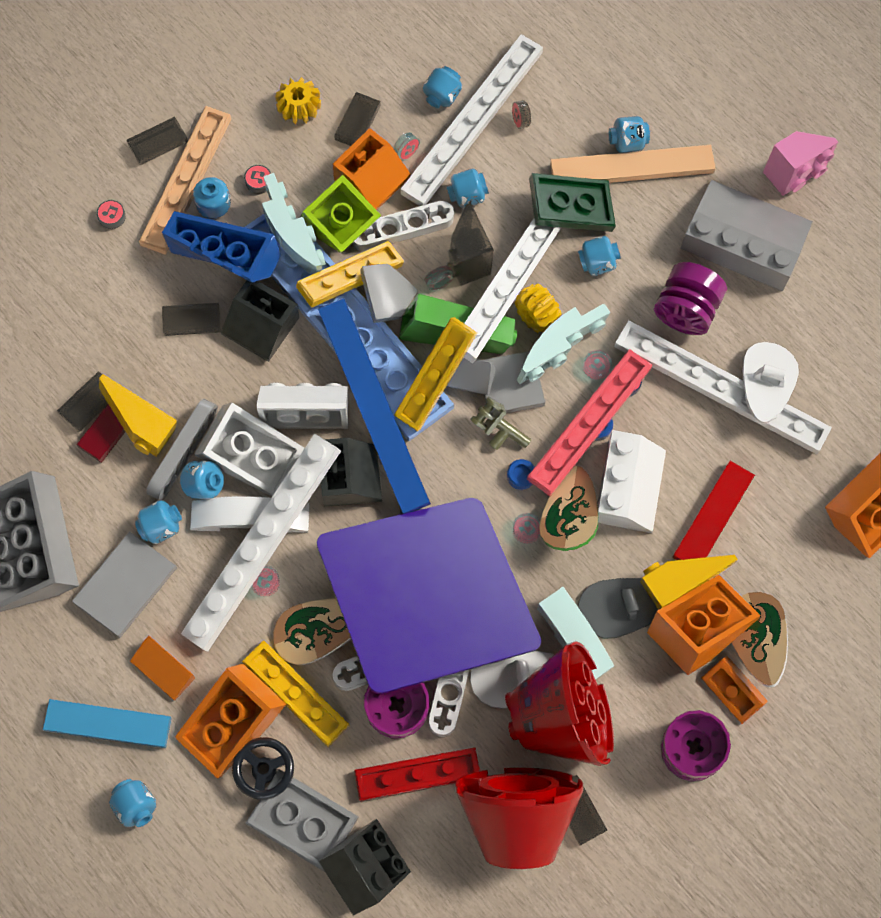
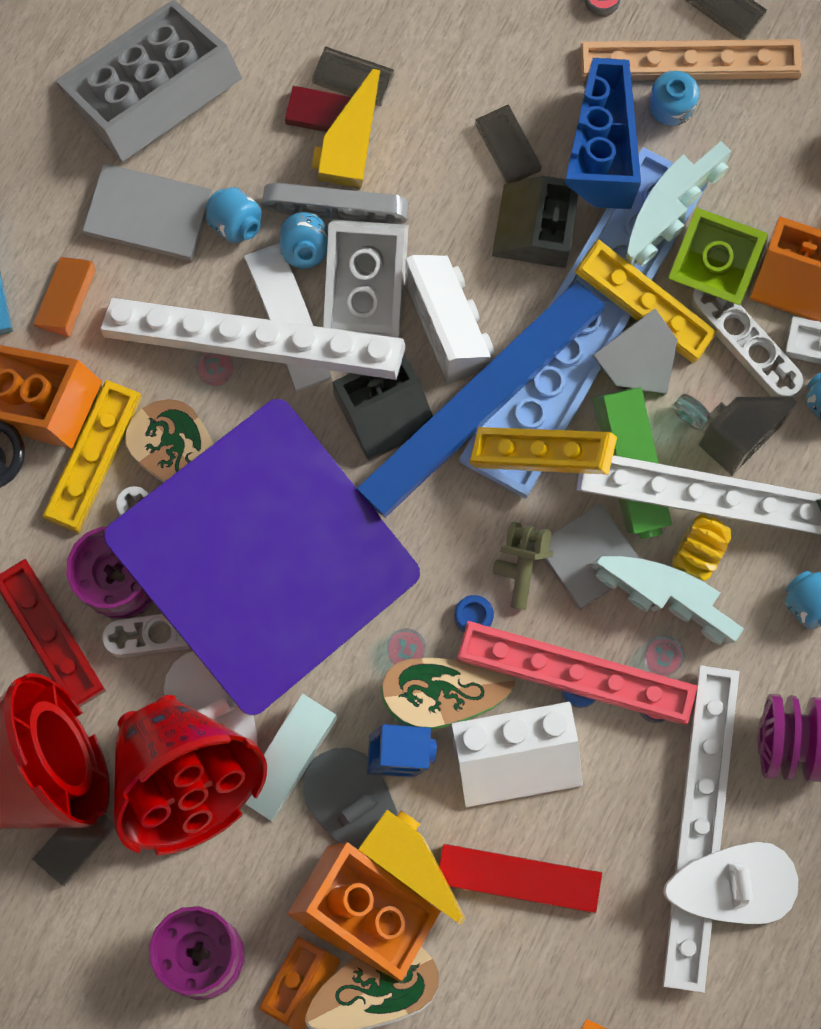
camera: 70 degrees right, 5 degrees up
(255, 178) = (734, 138): tile -> none
(473, 377) = (573, 508): light grey slope -> none
(604, 554) = (400, 751): none -> blue brick

